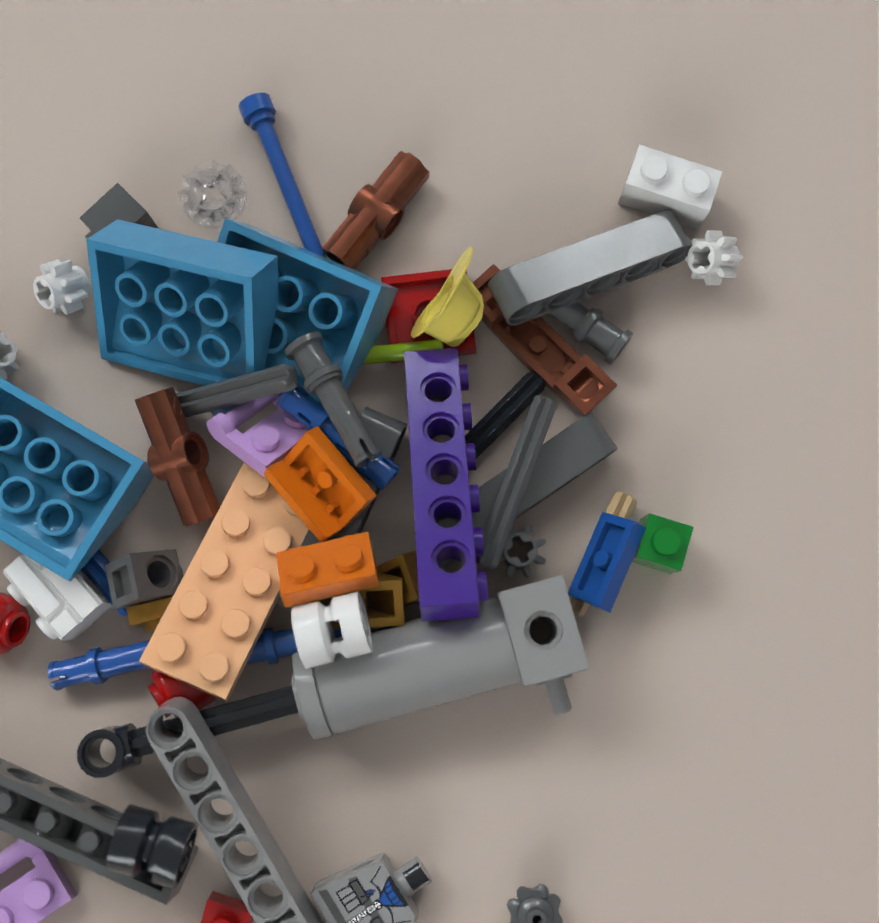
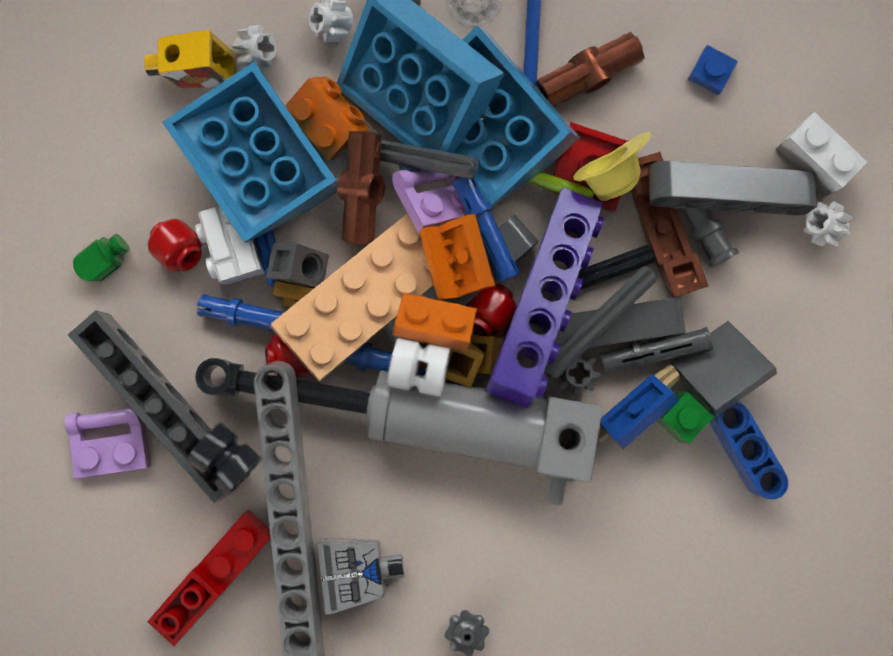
camera: 20 degrees right, 5 degrees up
(102, 395) = (325, 115): none -> orange bracket
(324, 380) = (495, 183): dark grey pin -> none
(390, 525) = (493, 310): none -> red head
(509, 152) = (712, 70): none -> blue plate
(634, 449) = (656, 351): none -> dark grey pin
(678, 467) = (726, 371): none -> dark grey tile
(771, 547) = (760, 462): none -> blue beam

